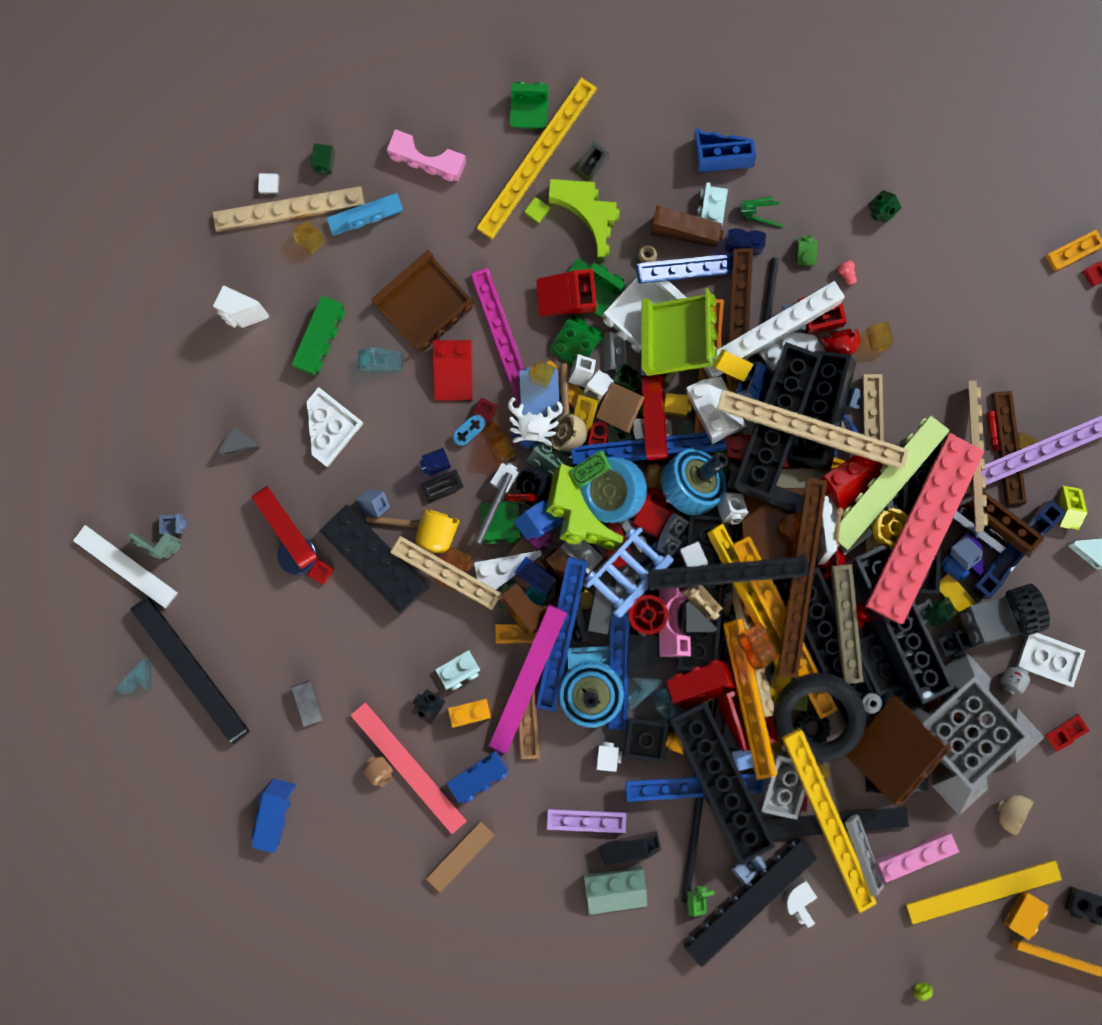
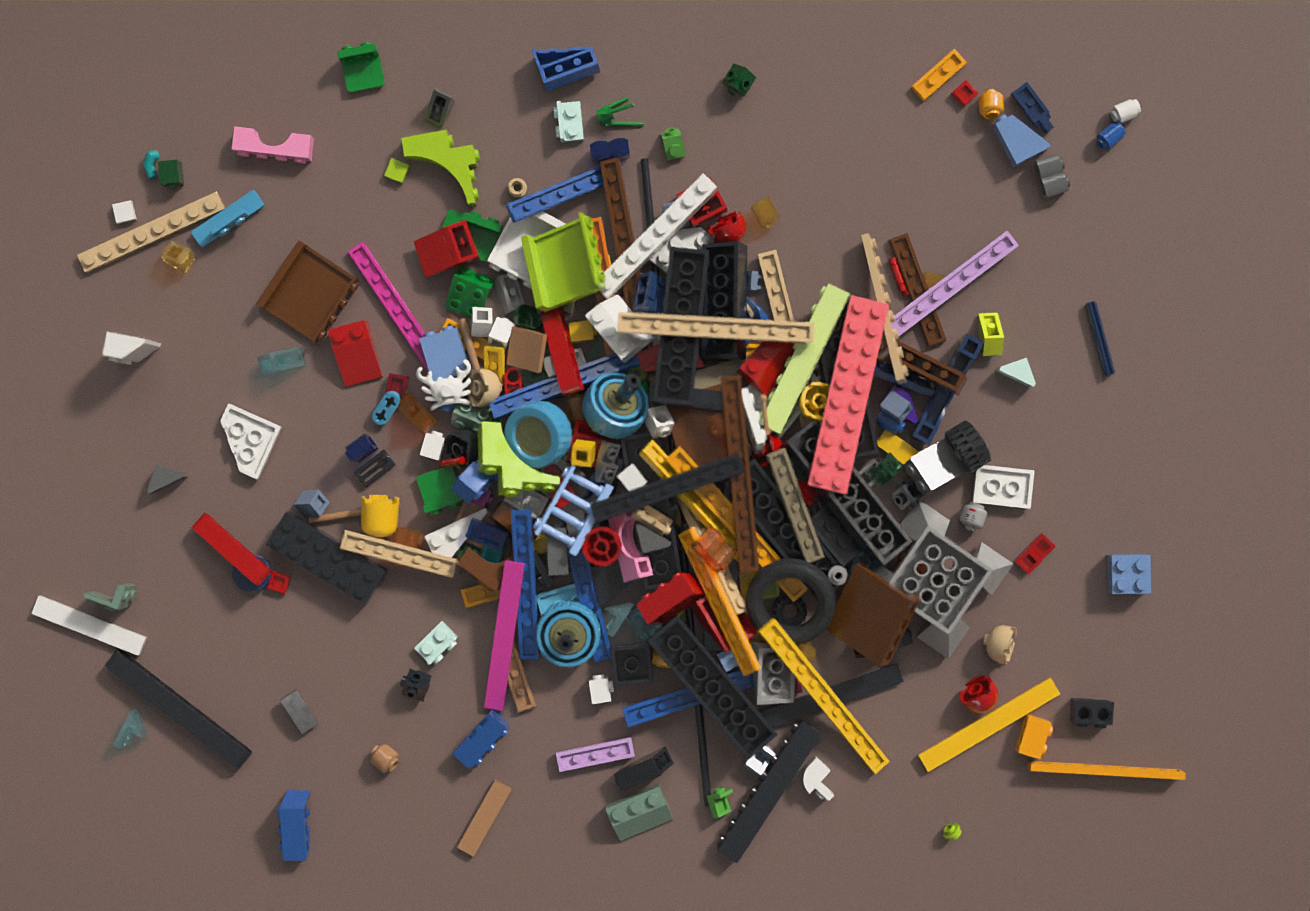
camera: 10 degrees left, 5 degrees up
(172, 524) = (123, 573): sand blue bracket -> none
(304, 143) = (148, 162): none -> teal arm
(318, 336) = (215, 352): green brick -> none
(408, 768) = (413, 747): coral tile -> none
(469, 712) = (457, 680): light orange brick -> none
(493, 508) = (428, 480): flat silver bar -> none
(536, 158) = (383, 118): yellow plate -> none
(541, 374) = (441, 337): clear yellow brick -> none
(590, 469) = (510, 420): bright green tile -> none
(652, 519) = (583, 453): none -> yellow brick
(685, 227) = (547, 151): reddish brown slope -> none
(732, 365) = (623, 283): yellow tile -> none
(847, 271) = (719, 155): coral piece -> none
(864, 854) = (866, 719): light grey tile -> none
(930, 851) = (907, 715): bright pink arch -> none
(982, 859) = (980, 694): none -> red cylinder

